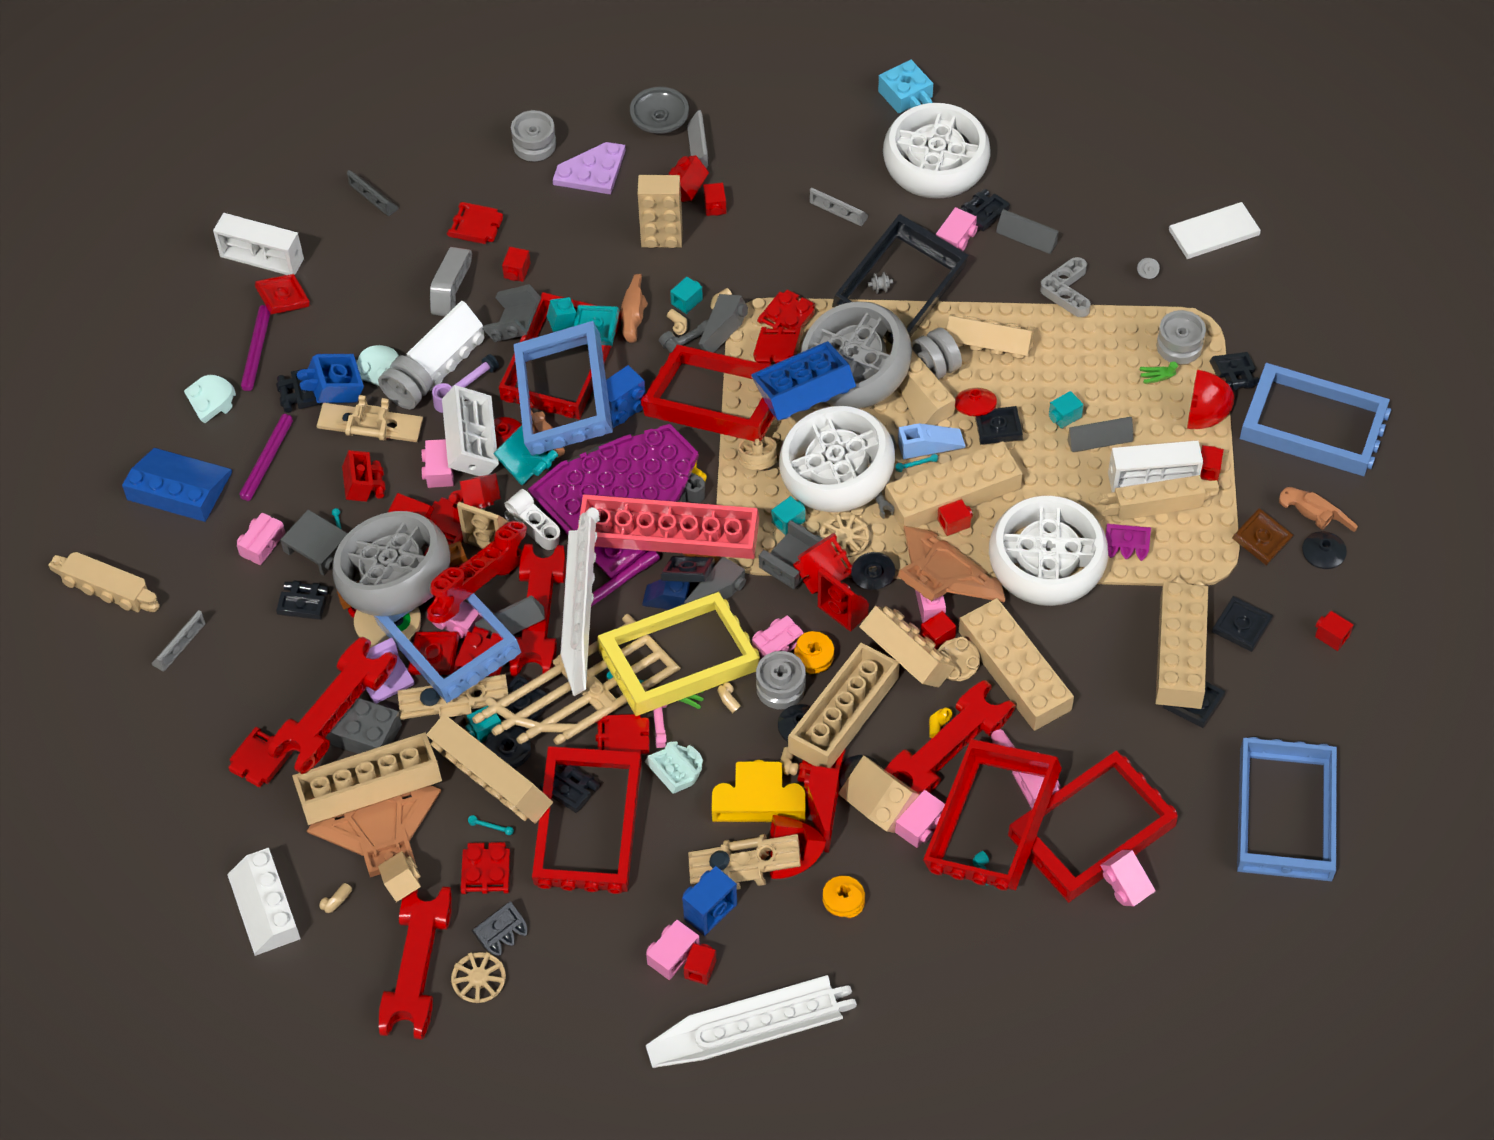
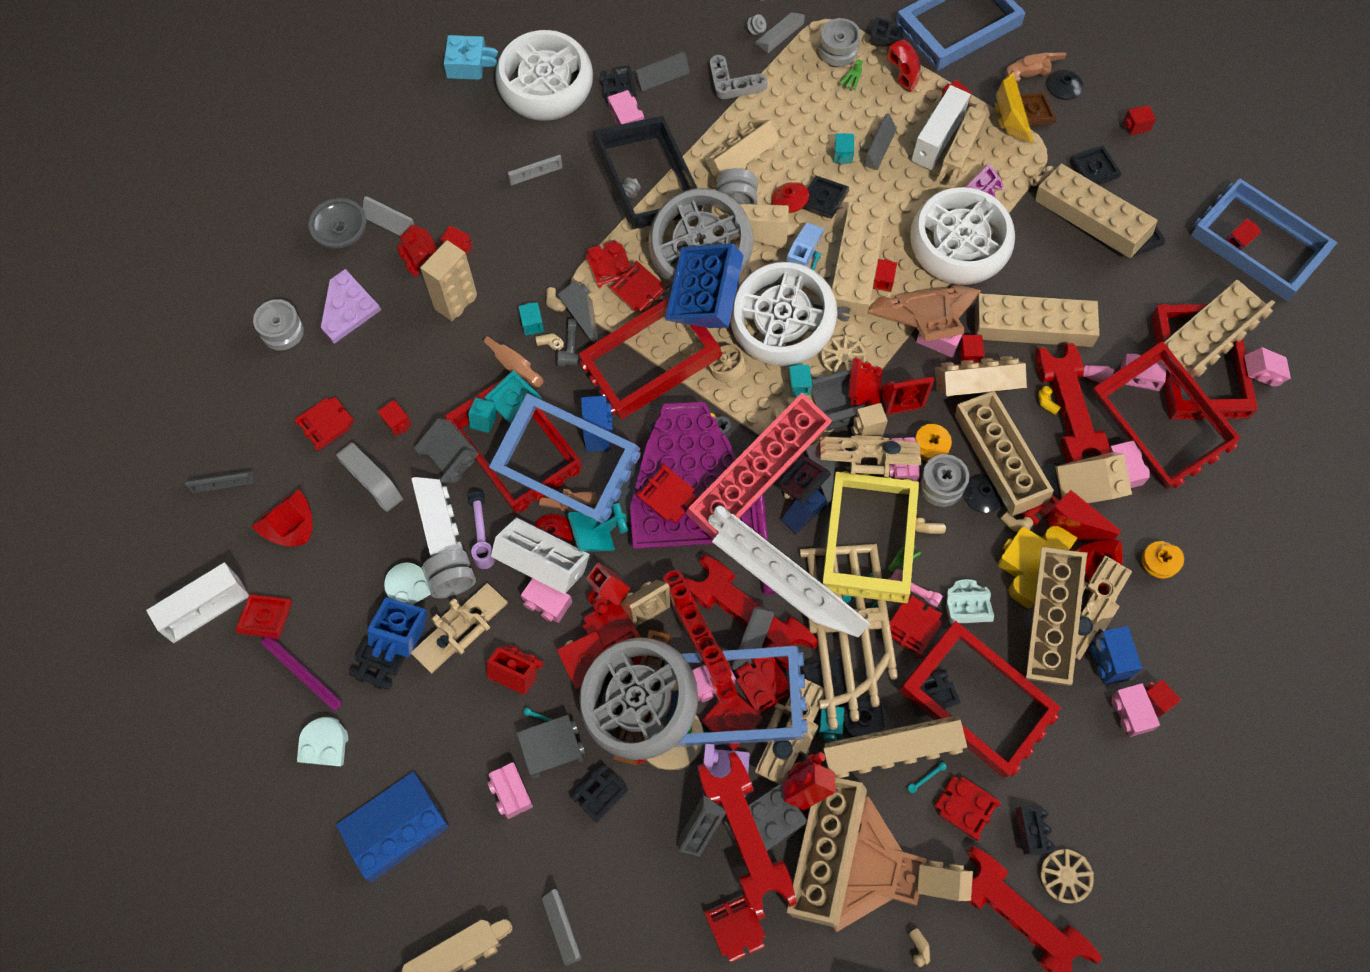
camera: 55 degrees left, 10 degrees up
(266, 457) = (425, 734): magenta axle -> none
(318, 675) = (700, 827): none -> dark grey slope
(370, 256) = (287, 522): none -> red brick
(407, 722) = (808, 782): none -> red brick
(522, 509) = (648, 563): white piece -> none
(589, 478) = (668, 495): none -> red plate
(704, 826) = (1056, 616): none -> tan brick
(750, 1022) = (1236, 698): white hinge -> none
(767, 608) = (882, 448): none -> tan piece
(787, 590) = (870, 421): none -> tan brick
(874, 577) = (892, 356): black dish -> none
(964, 658) = (1003, 346): tan dish -> none
(980, 860) = (1184, 451): teal hand -> none
(1128, 809) = (1217, 328): none -> tan bracket
(1161, 292) = (780, 31): none -> light grey slope
(1238, 510) = (1012, 110): none -> yellow wedge
(1264, 780) = (1243, 234): none -> red brick

